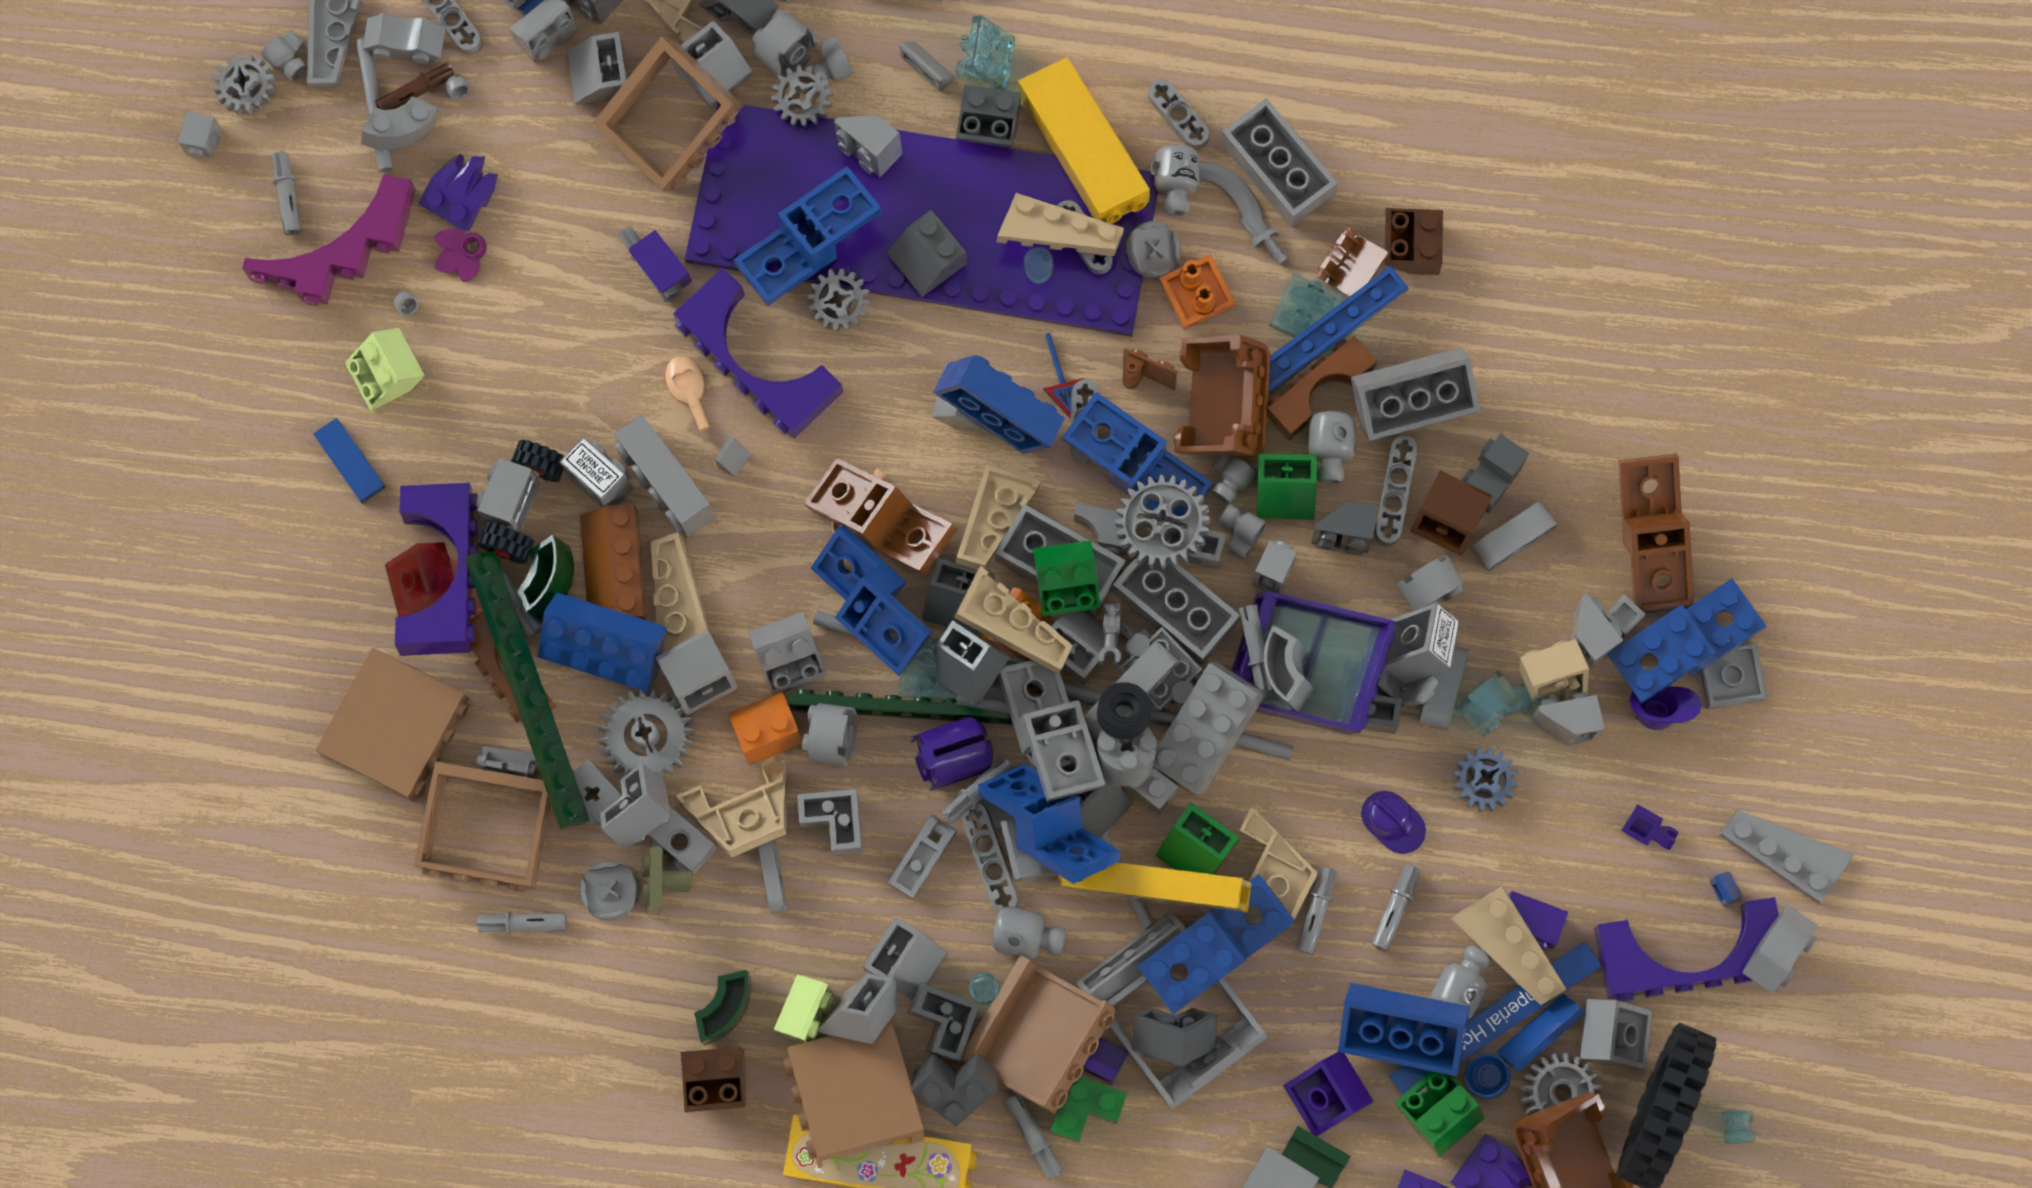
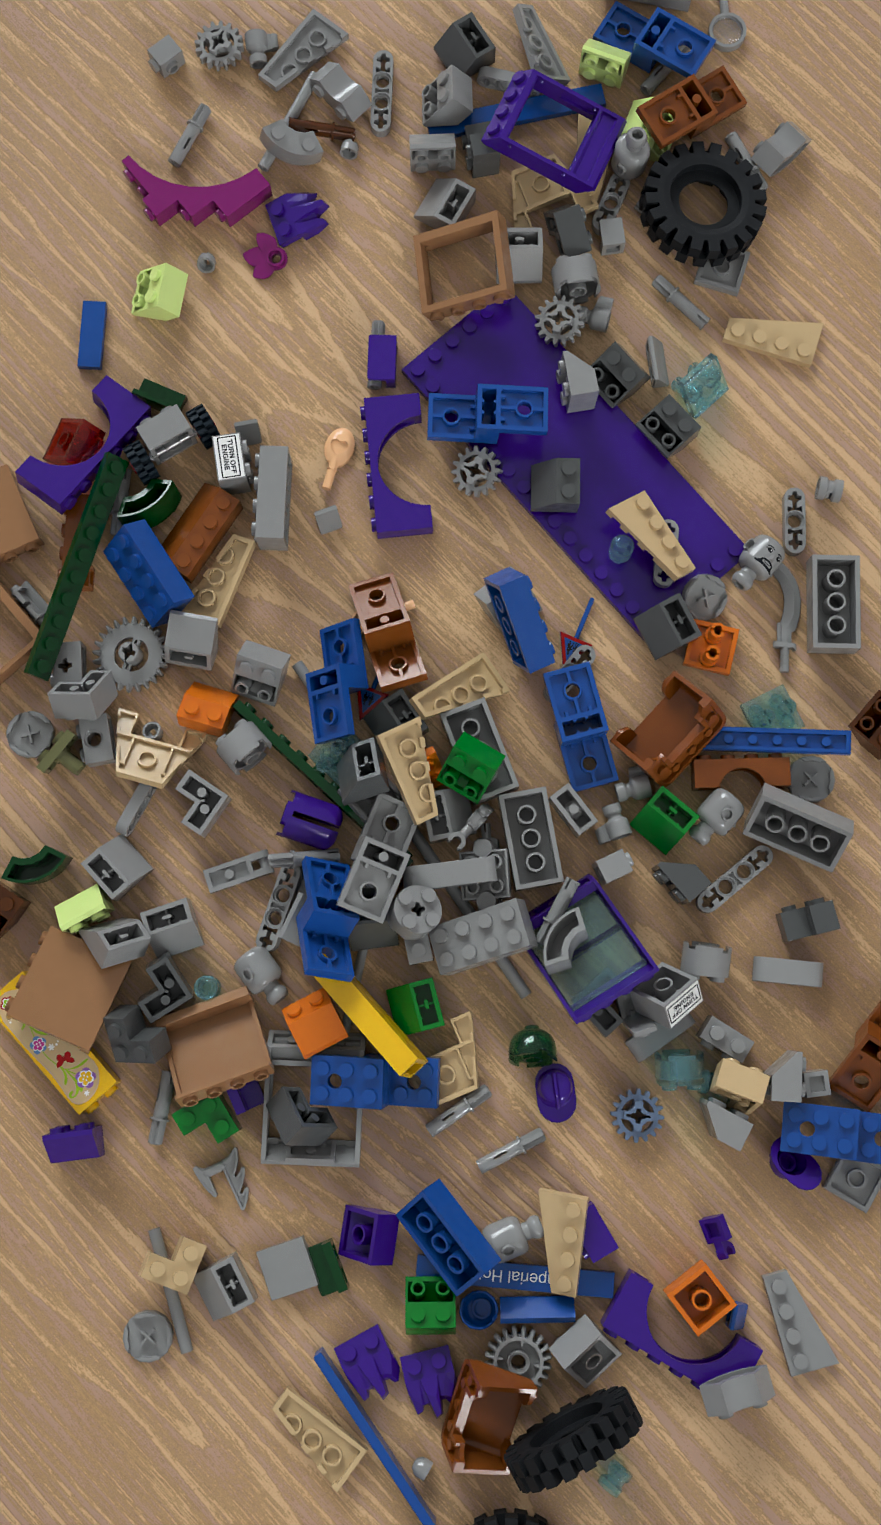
camera: 35 degrees right, 5 degrees up
(467, 467) = (159, 396): none -> dark green panel
(584, 428) = (249, 431): none -> light grey slope
(728, 784) = (152, 725): none -> light grey hinge
(802, 945) = (117, 867): none -> light grey slope
(900, 103) = (618, 375): none -> dark grey slope
(913, 594) = (369, 699): none -> piece
(1083, 142) = (716, 491): yellow brick -> none
(1102, 524) = (529, 755): light grey arch -> none
(1115, 935) = (315, 1023): none -> orange slope
(1129, 695) = (443, 876): black tyre -> none
(1137, 364) = (631, 664): dark orange hinge -> none
(1142, 303) = (667, 626): none -> dark grey slope
(1144, 1140) = (229, 1166): none -> light grey piece
(1155, 545) = (544, 792): light grey gear -> none
(1187, 58) = (829, 489): none -> light grey wheel
(1338, 795) = (532, 1047): none -> clear green cylinder
(1351, 262) = (827, 708): hinge -> none
(1391, 340) = (811, 779): none -> light grey tile
(1451, 513) = (757, 924): reddish brown slope -> none
(1506, 643) = (724, 1039): none -> light grey brick
(1679, 897) = (700, 1297): none -> orange brick

